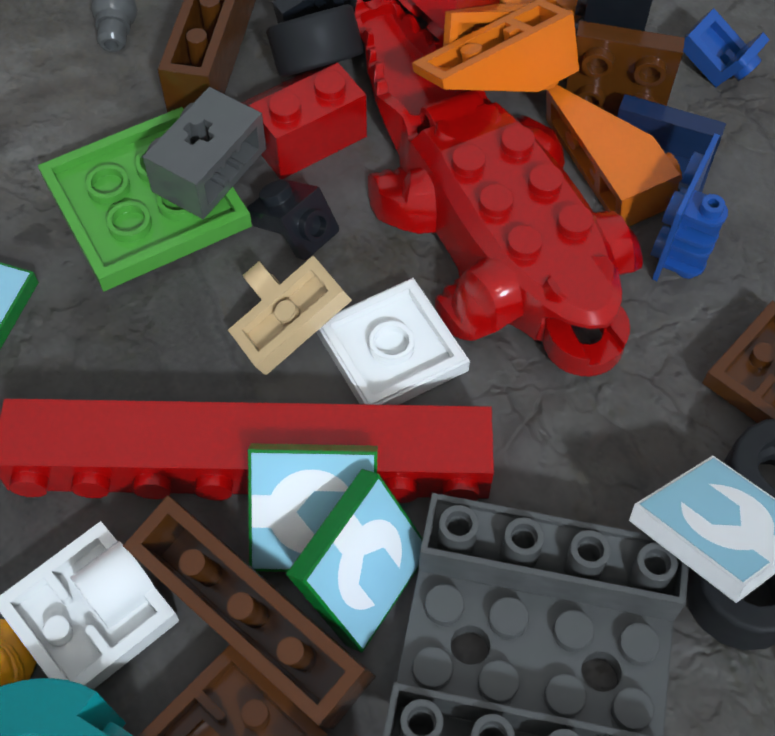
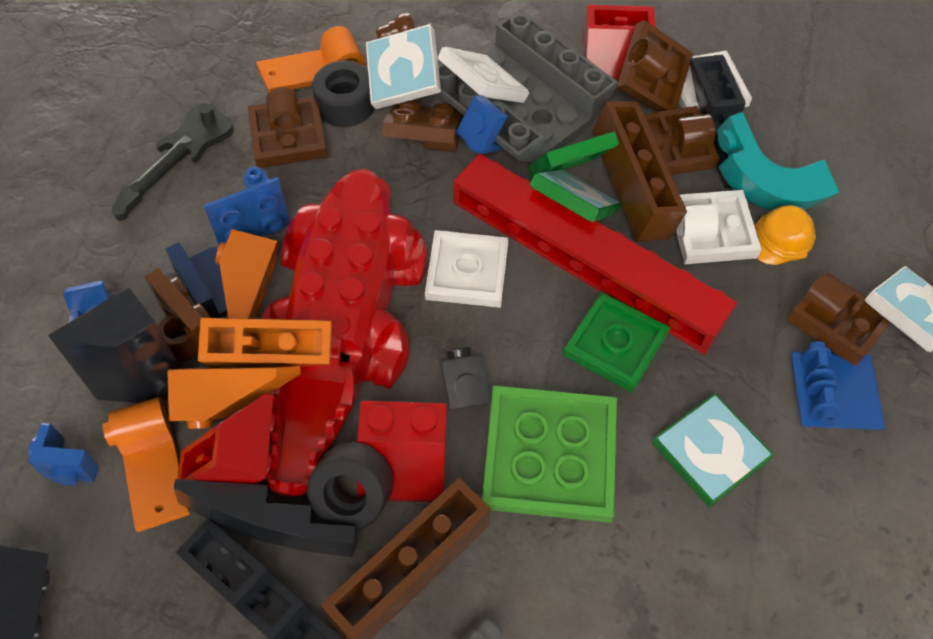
camera: 145 degrees left, 0 degrees up
(142, 357) = (616, 342): none -> green tile
(205, 152) = (509, 410): dark grey brick -> none
(287, 312) = (518, 306): tan plate -> none
(521, 495) = (481, 125): none -> blue bracket
(600, 605) = (483, 75): none -> white tile
(611, 472) = (429, 124): none -> reddish brown plate

